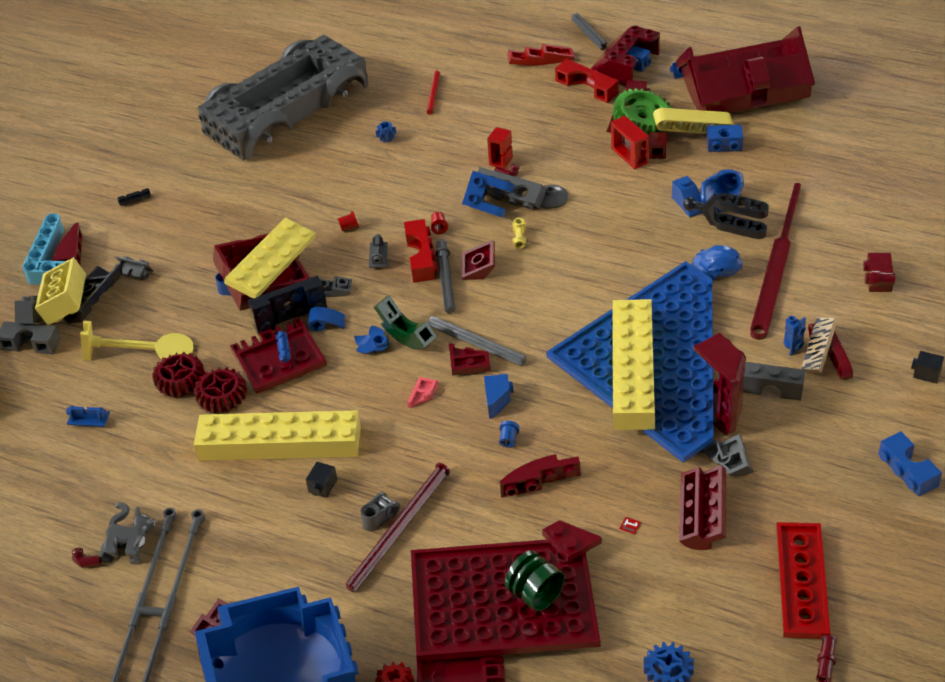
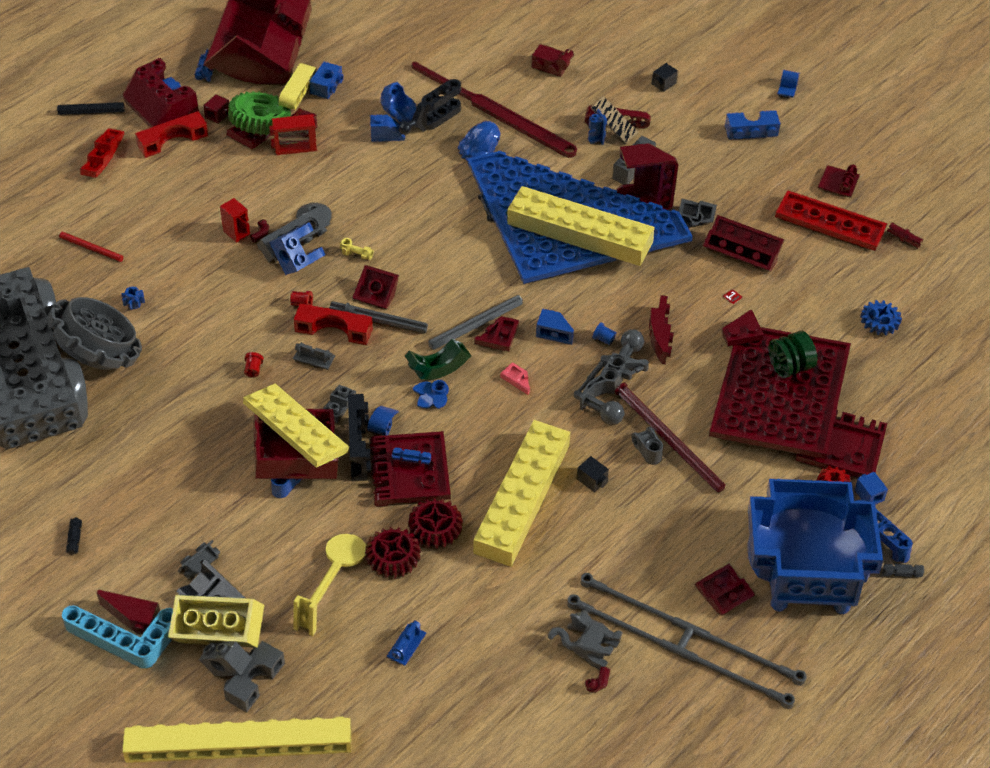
camera: 75 degrees left, 5 degrees up
(330, 127) = (94, 333): none -> dark grey piece
(454, 454) = (615, 369): none -> dark grey piece
(879, 571) = (839, 180): none -> dark red hinge

